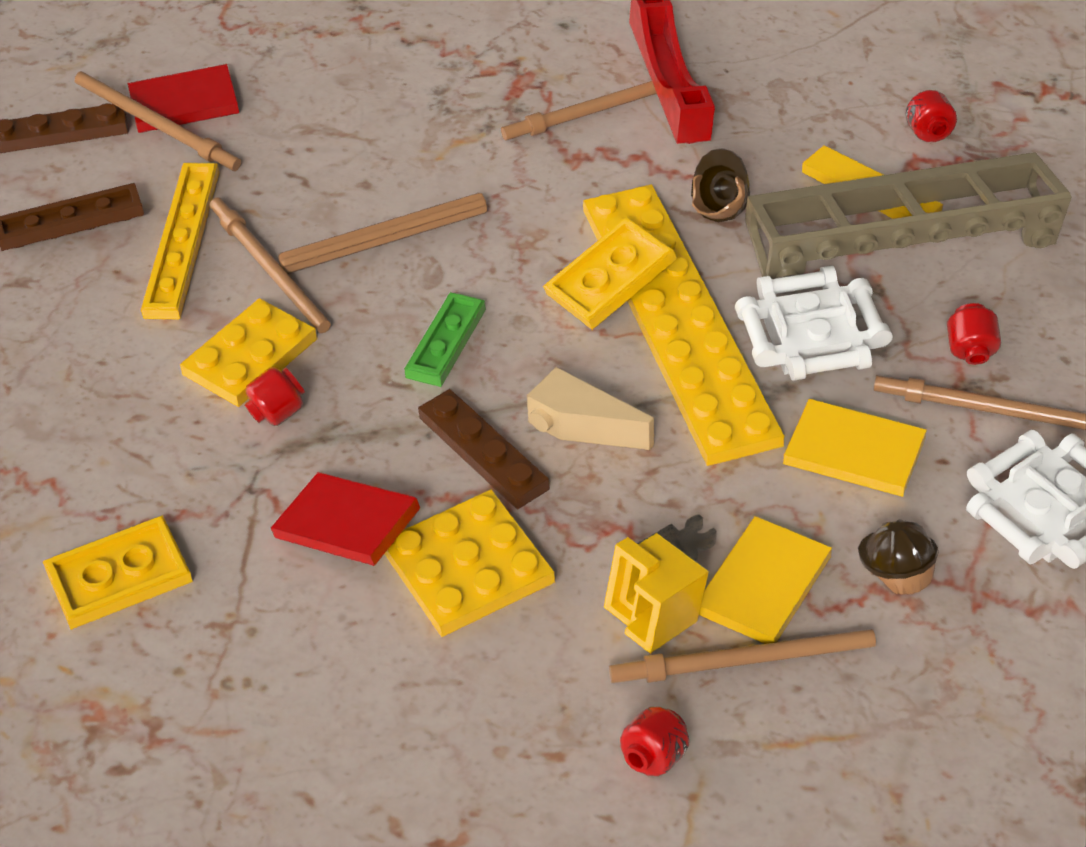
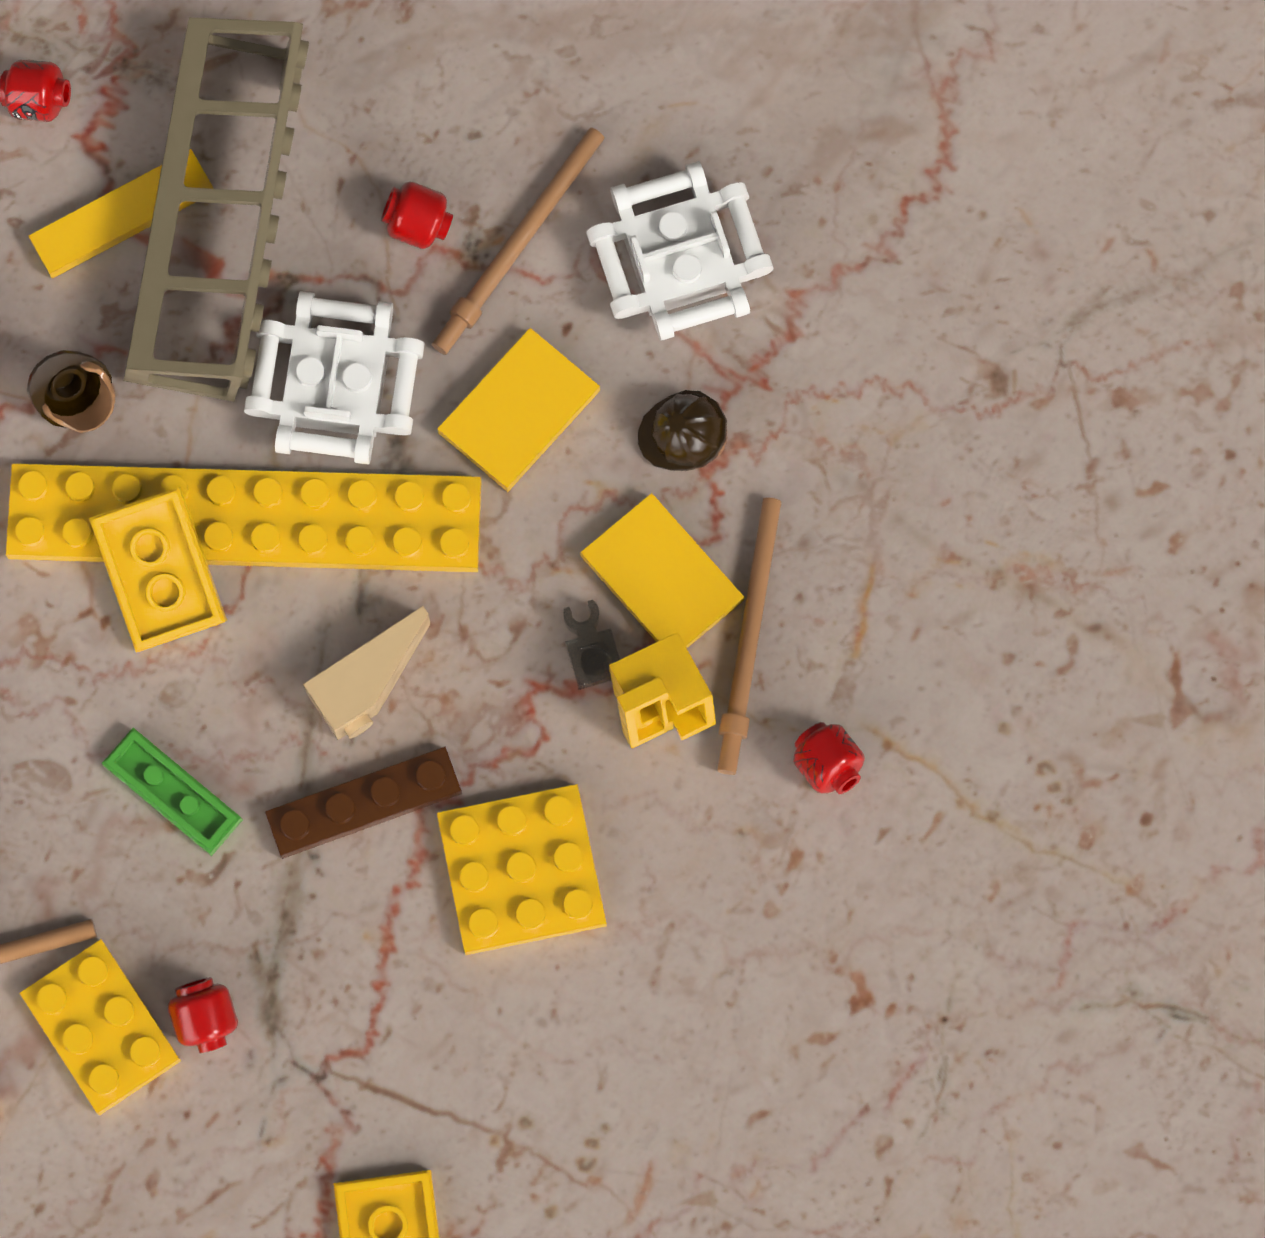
camera: 75 degrees left, 30 degrees up
(346, 518) = (422, 981): red tile -> none

